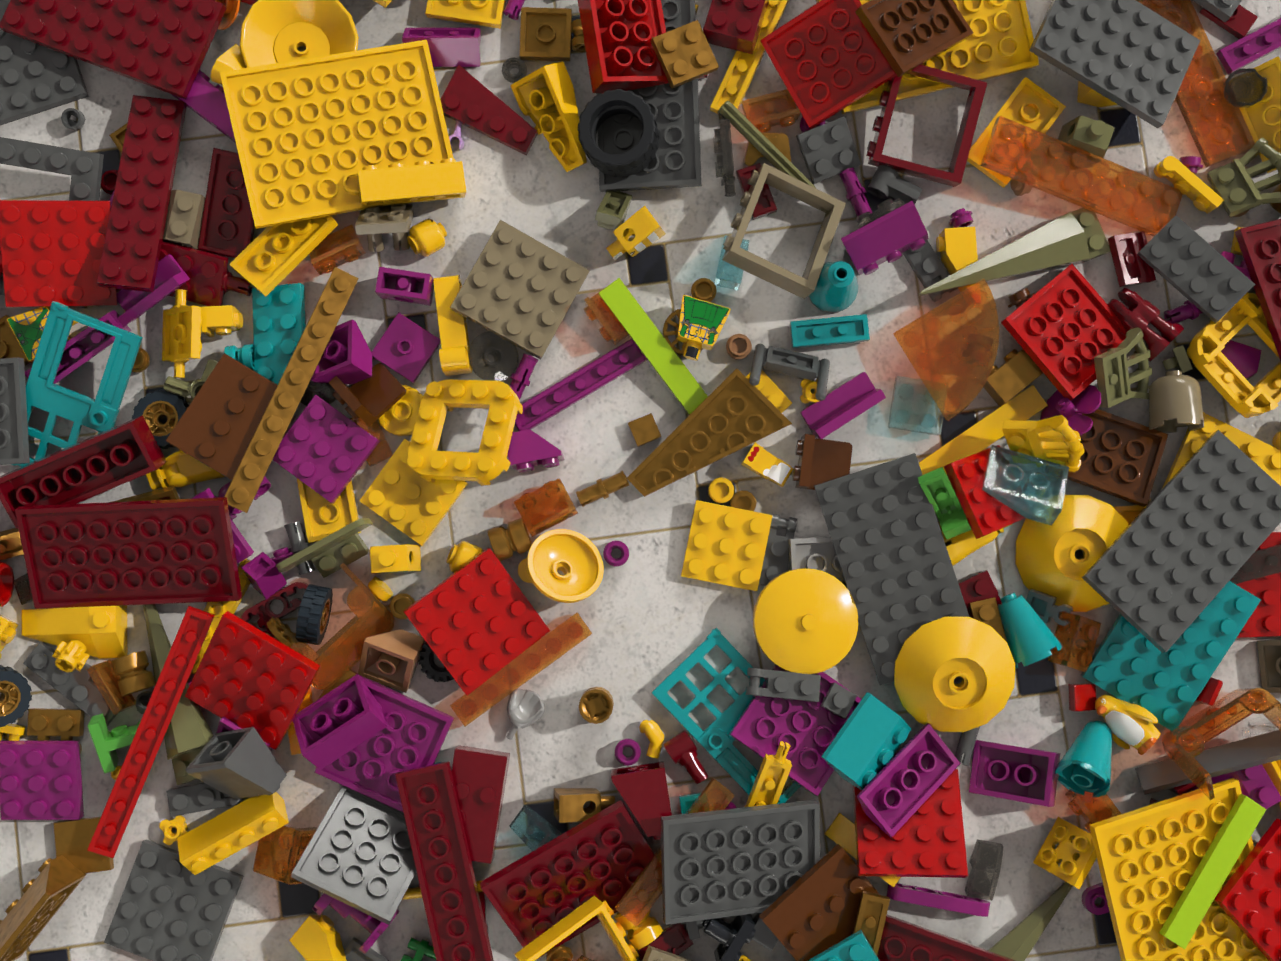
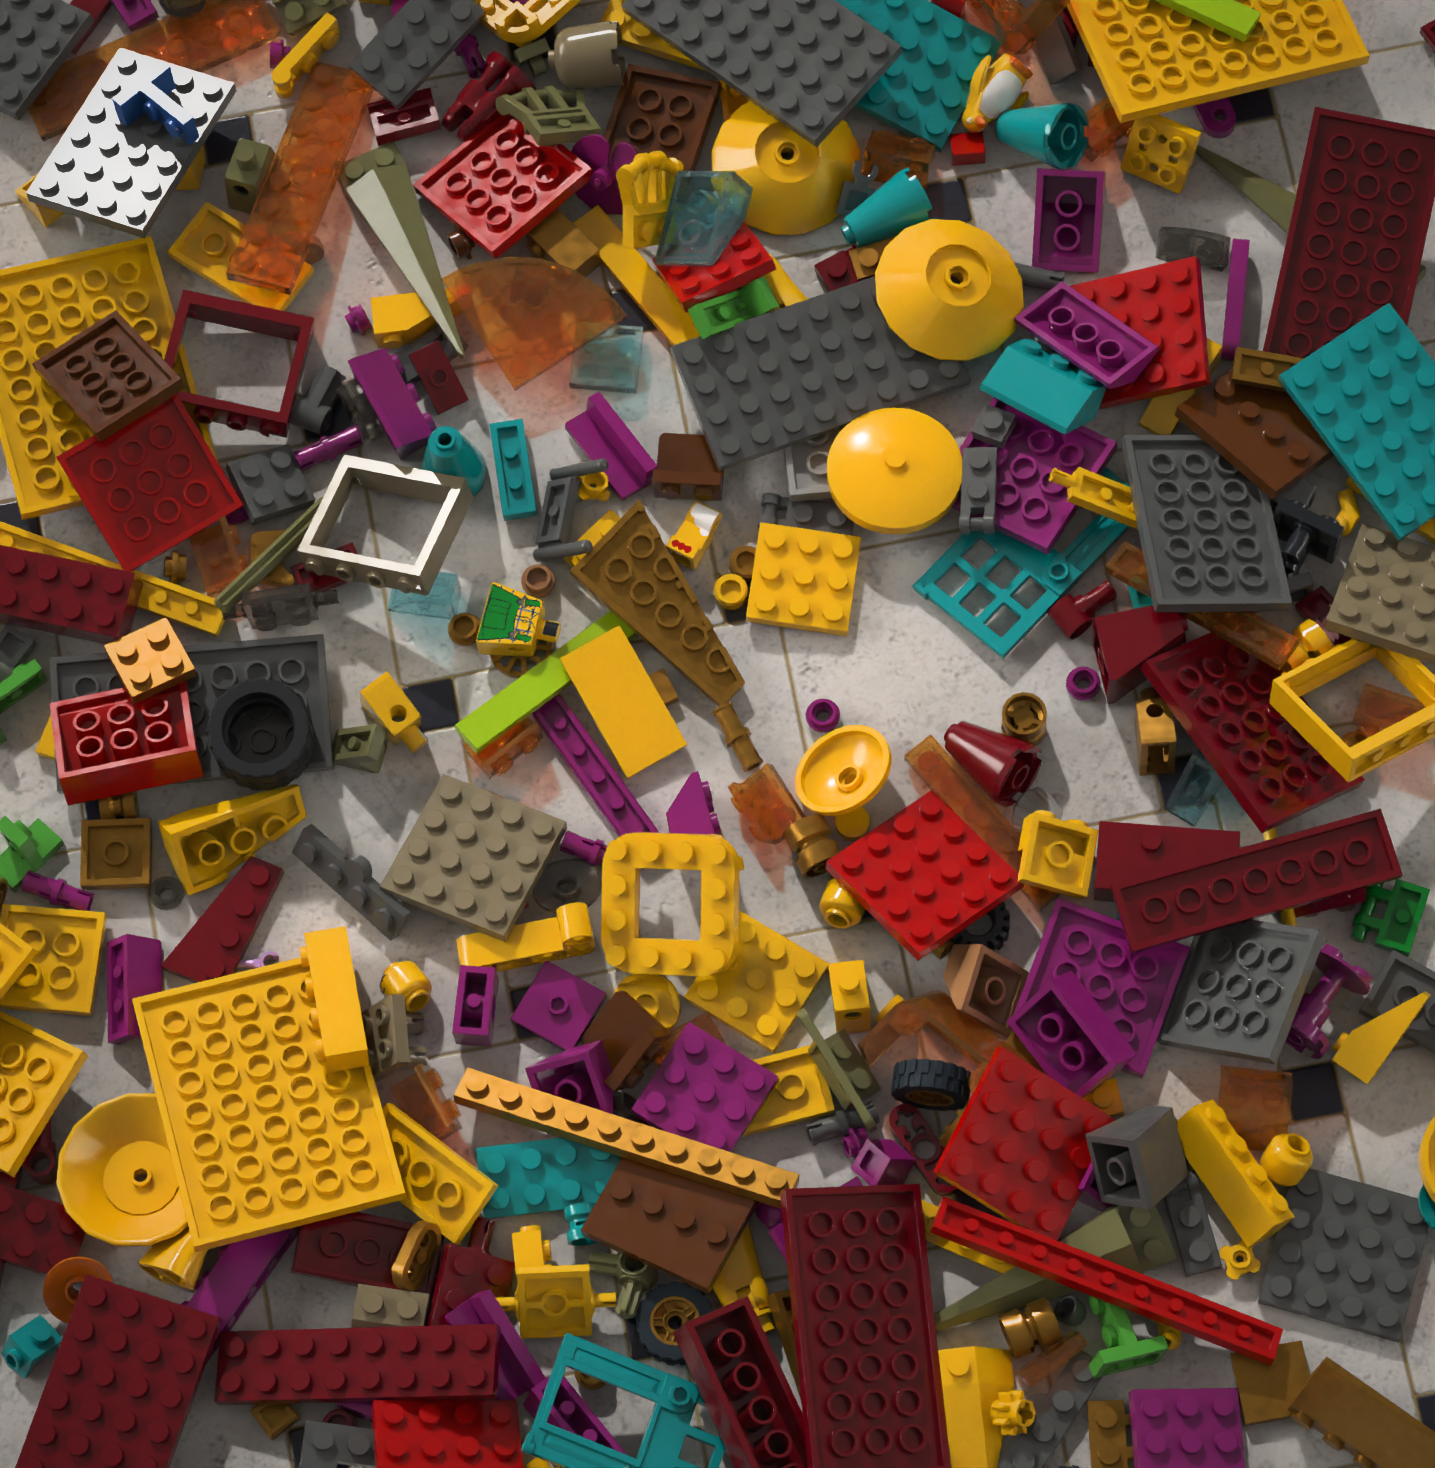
camera: 85 degrees left, 15 degrees down
(220, 236) = (416, 1255): none -> pearl gold plate
(239, 873) = (1287, 1159): none -> yellow head
(399, 604) = (912, 982): pearl gold plate -> none
(484, 722) = (1057, 854): none -> yellow plate
(511, 201) = (352, 881): none -> dark grey hinge
(567, 678) = (994, 760): none -> dark red cone
(633, 404) = (623, 702): none -> yellow tile
(654, 735) = (1059, 650): yellow arm -> none
(766, 79) = (175, 567): none -> pearl gold plate
(907, 277) = (438, 377): none -> dark red plate
(1151, 52) = (149, 96): none -> blue bracket

